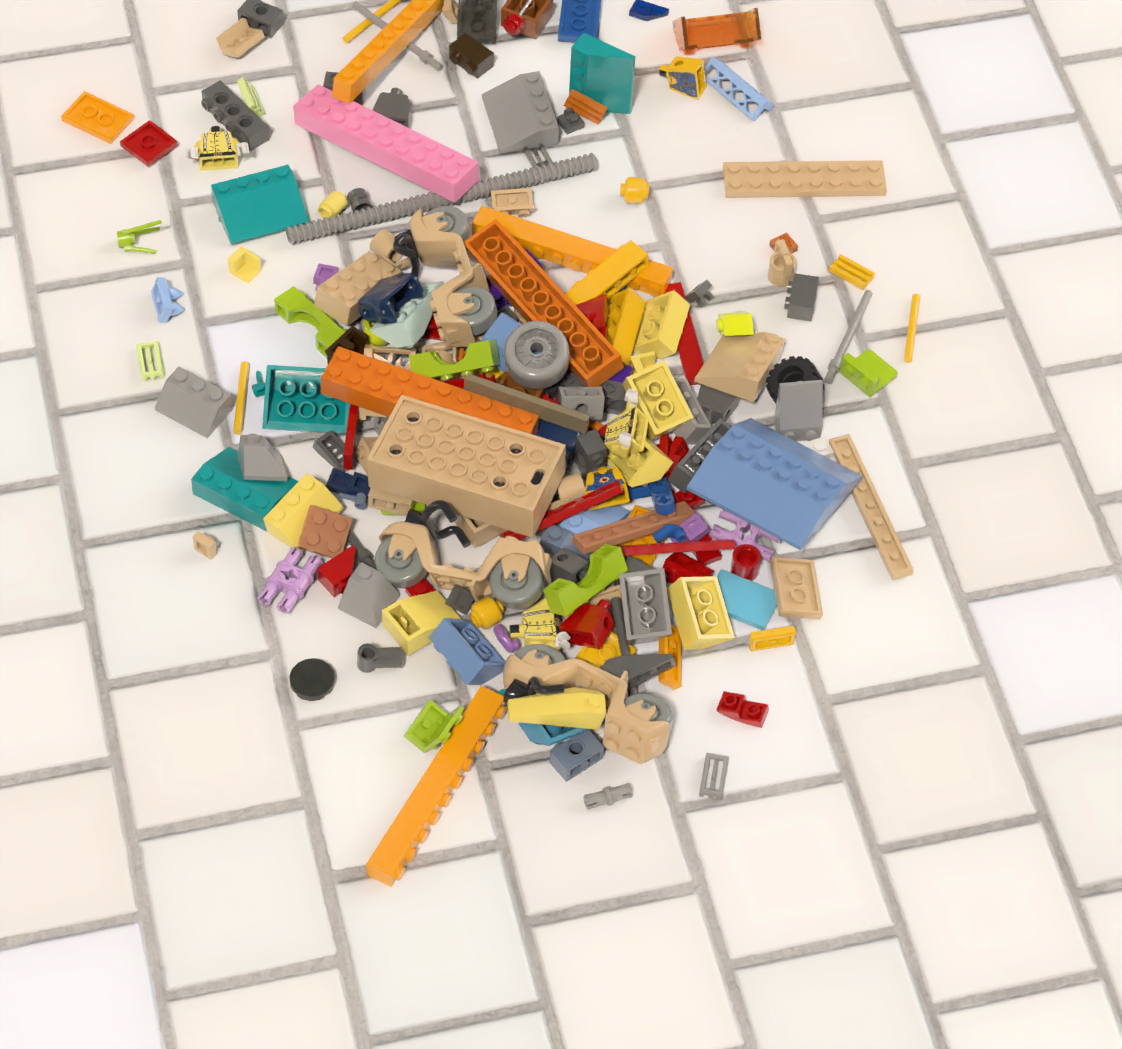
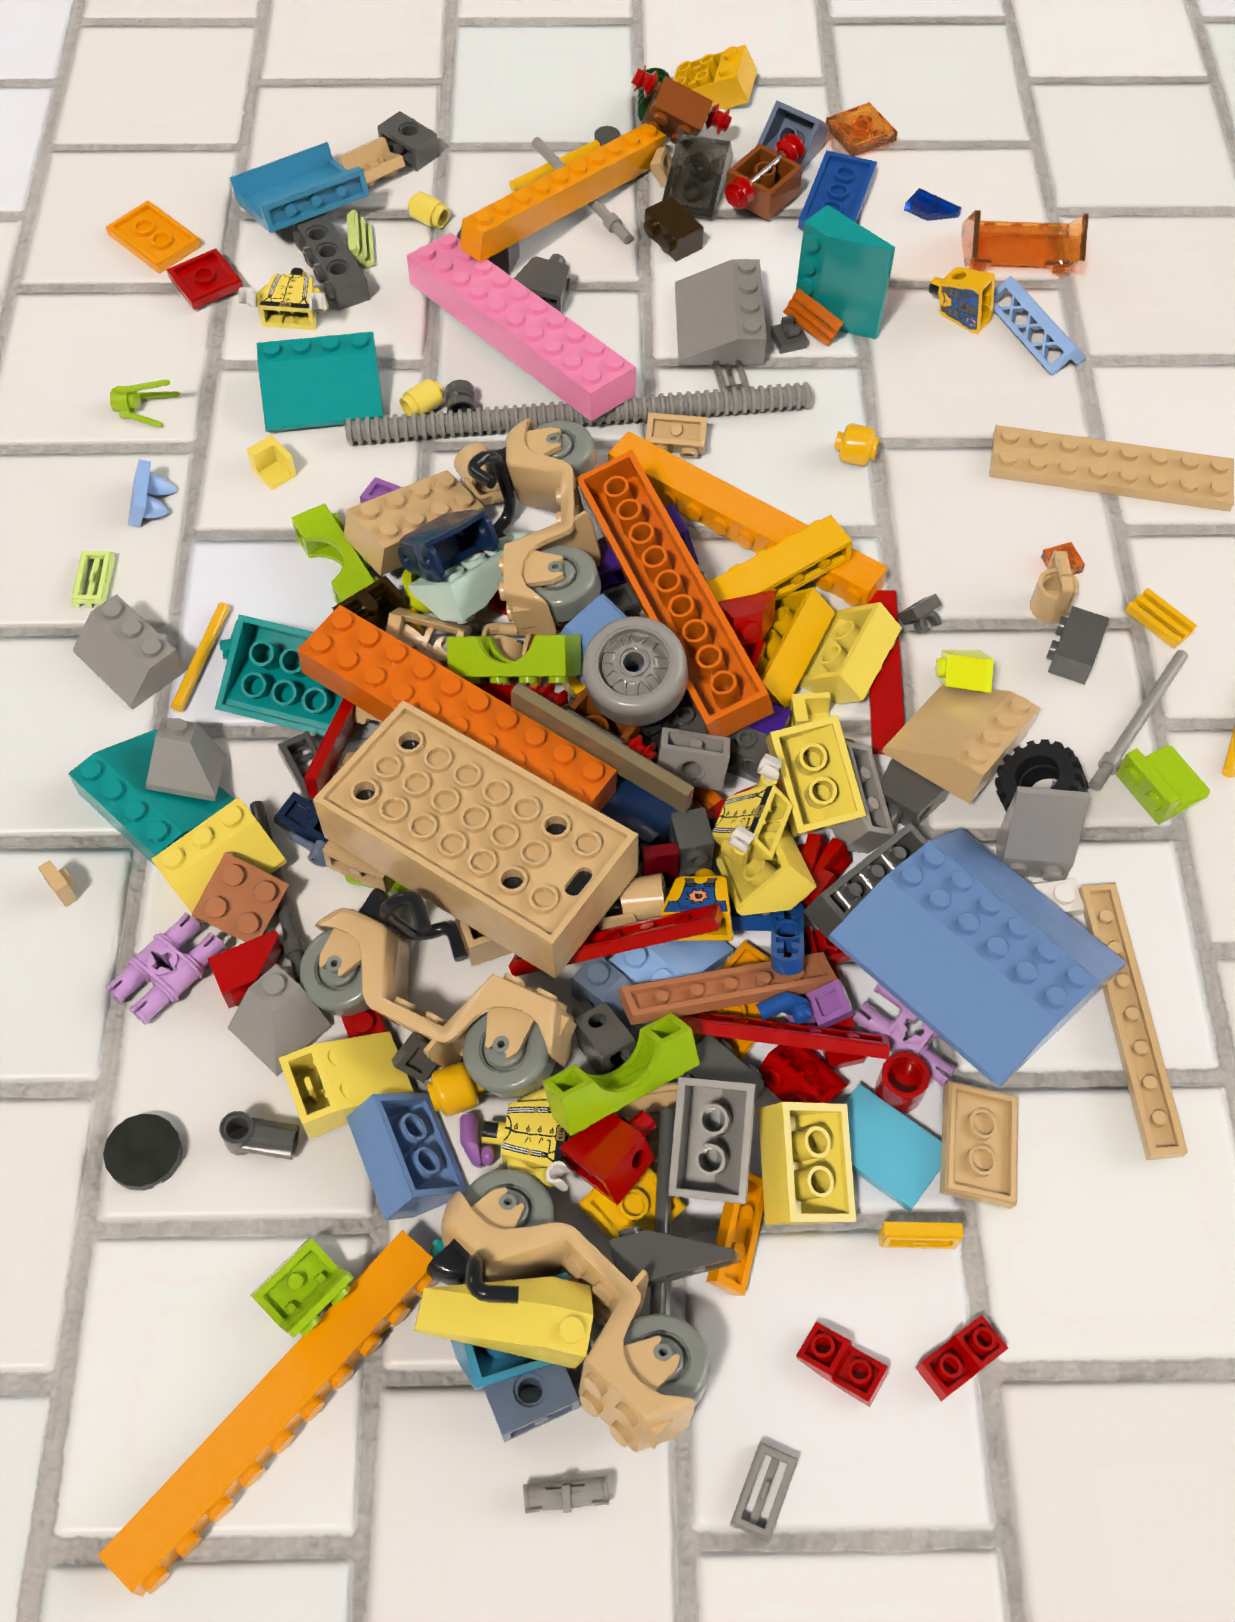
camera: 15 degrees right, 5 degrees up
(195, 67) = (297, 188): none -> dark azure panel
(292, 68) = (428, 210): none -> light yellow brick
(575, 464) = (661, 859): none -> dark red tile
(807, 694) = (961, 1358): none -> red slope

